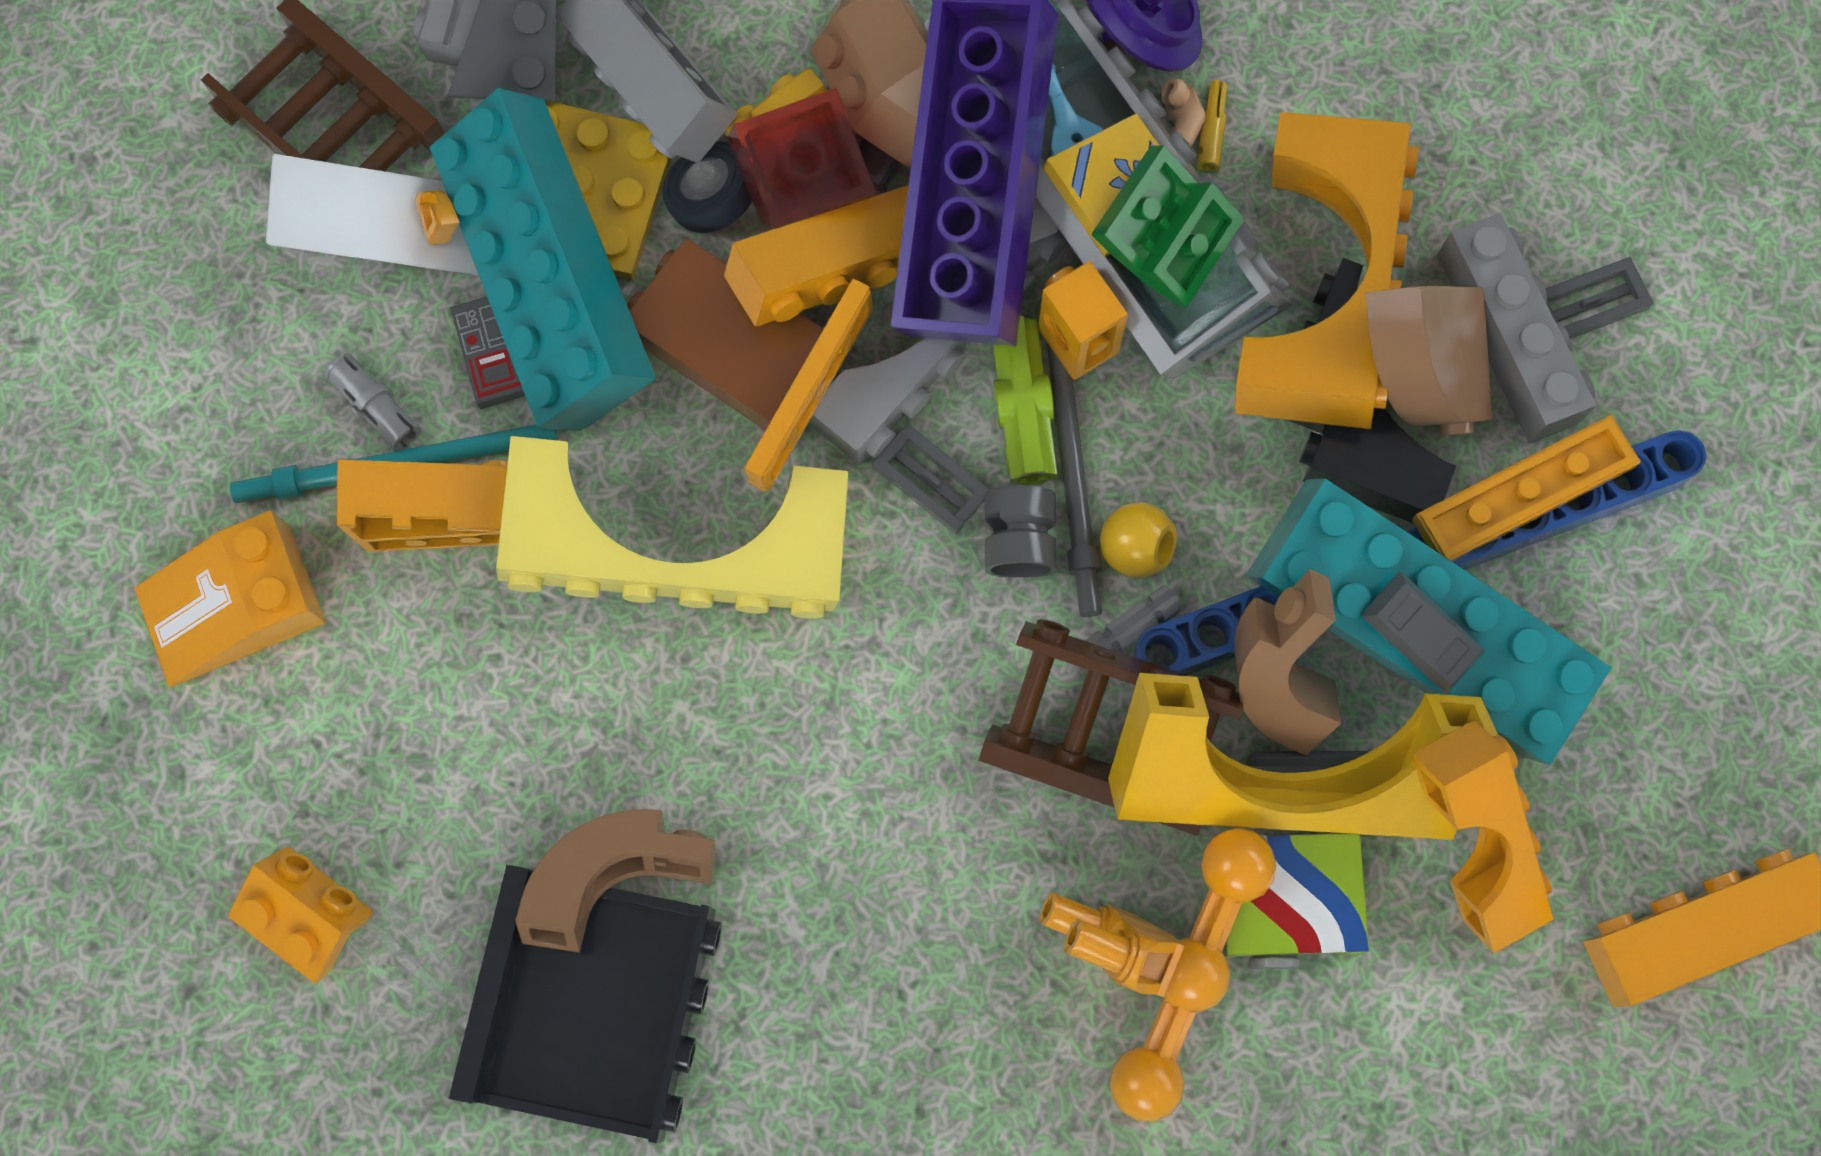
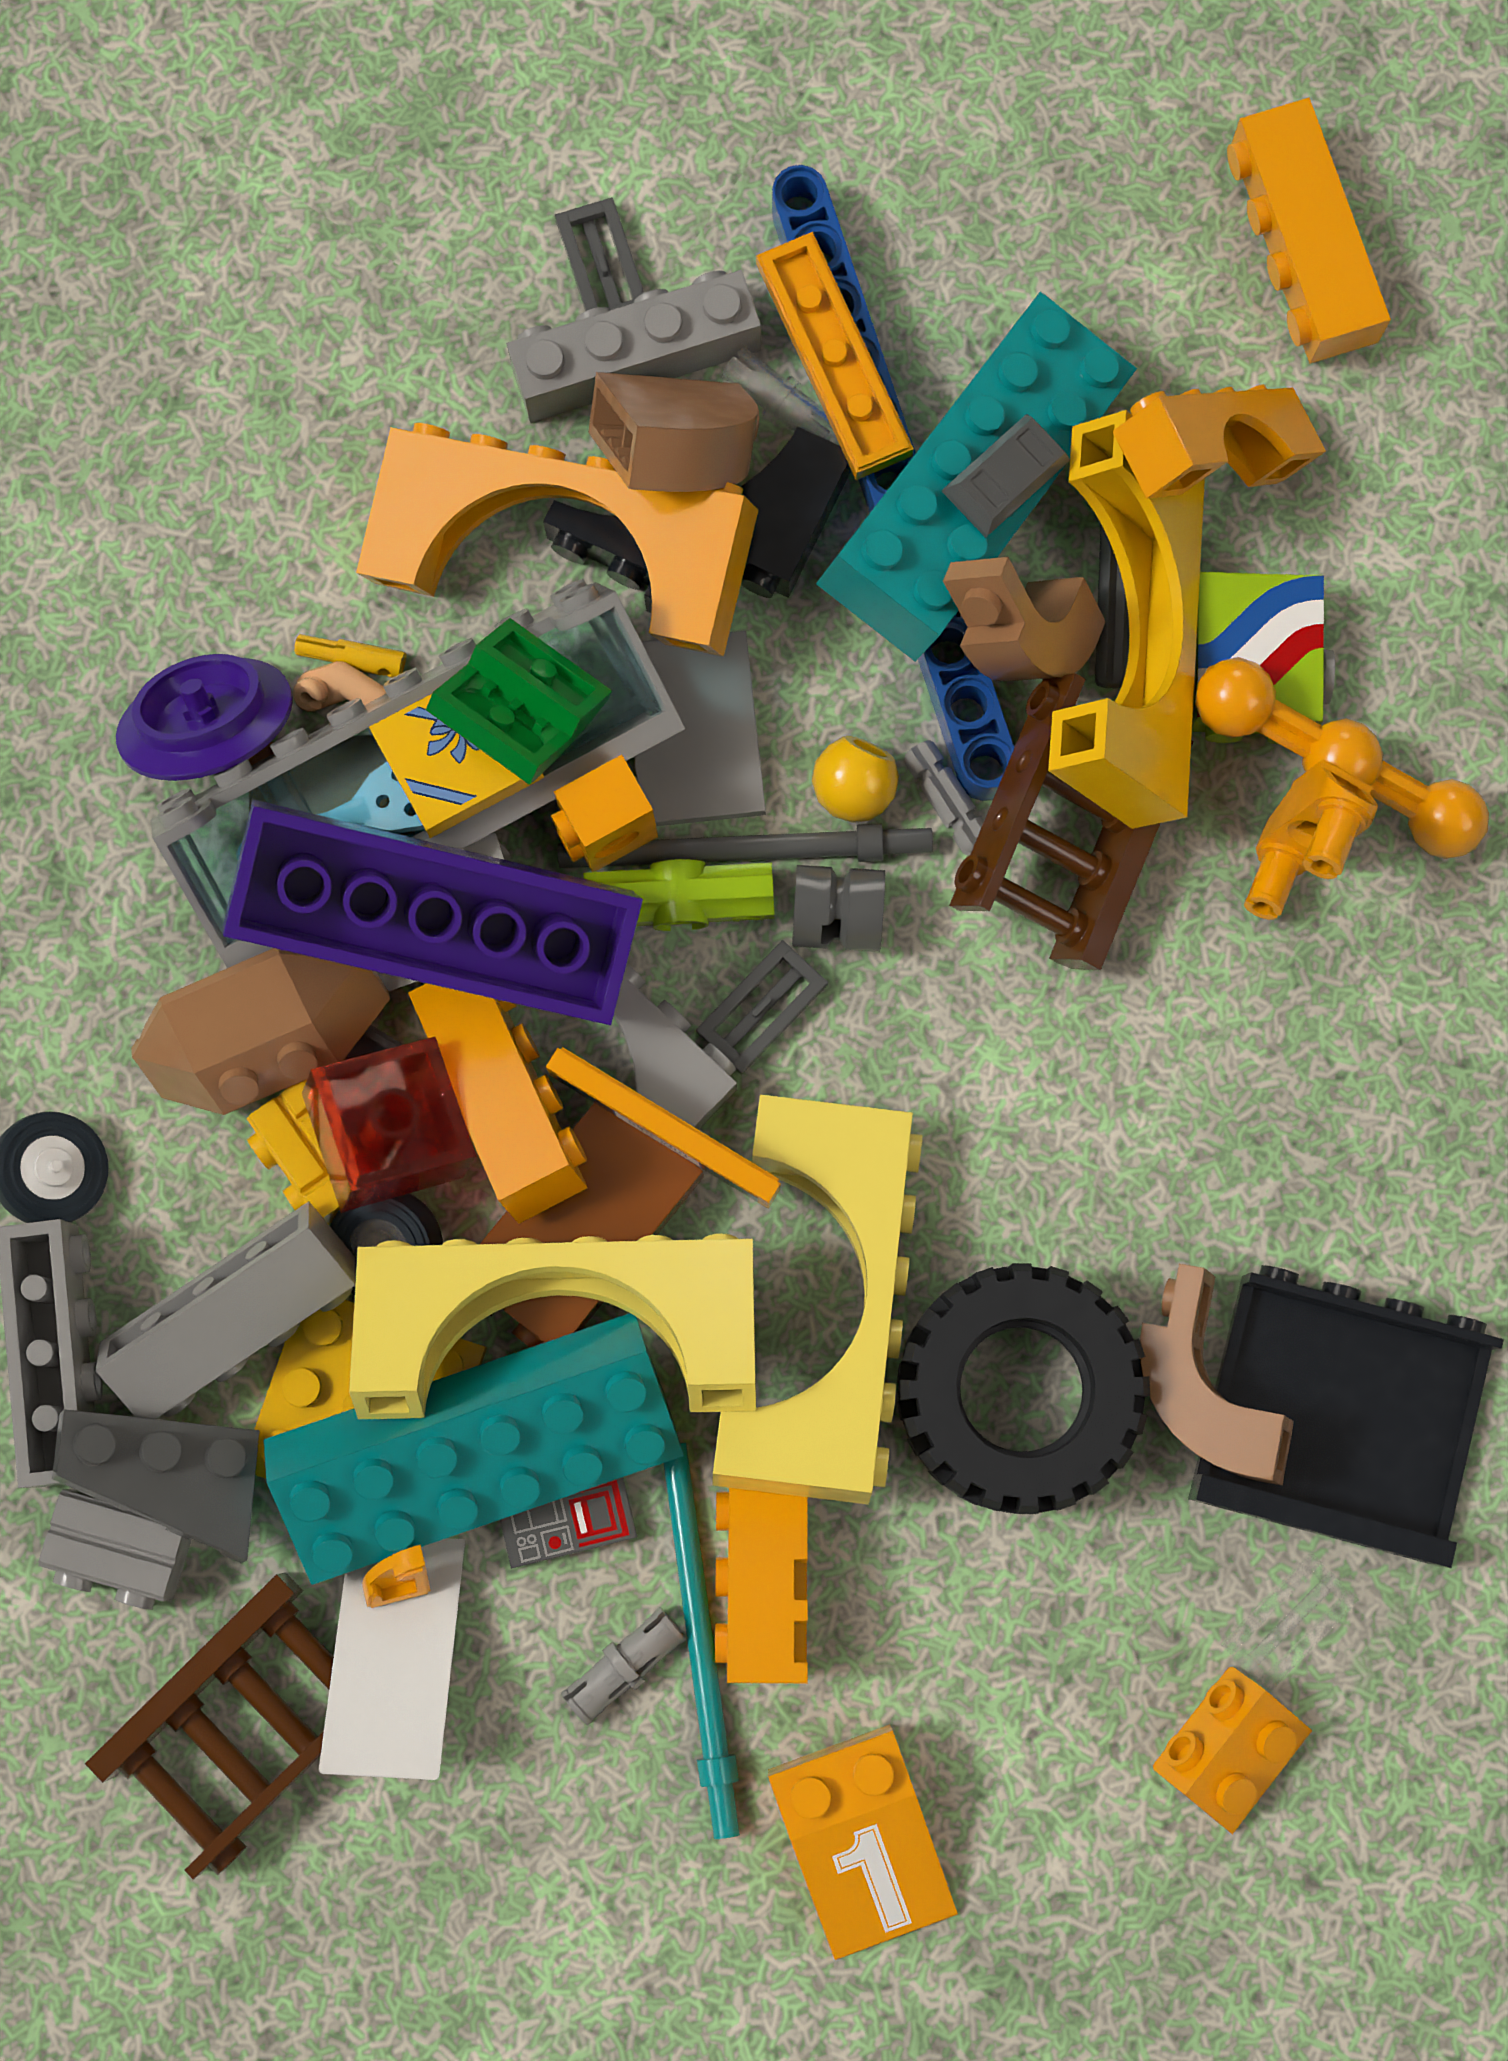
camera: 90 degrees left, 5 degrees up
(554, 652) = (1108, 1370): none -> black tyre
(651, 198) = (426, 1297): none -> light yellow arch
(1164, 420) = (715, 761): none -> light grey tile
(1488, 453) = (777, 395): none -> clear pin

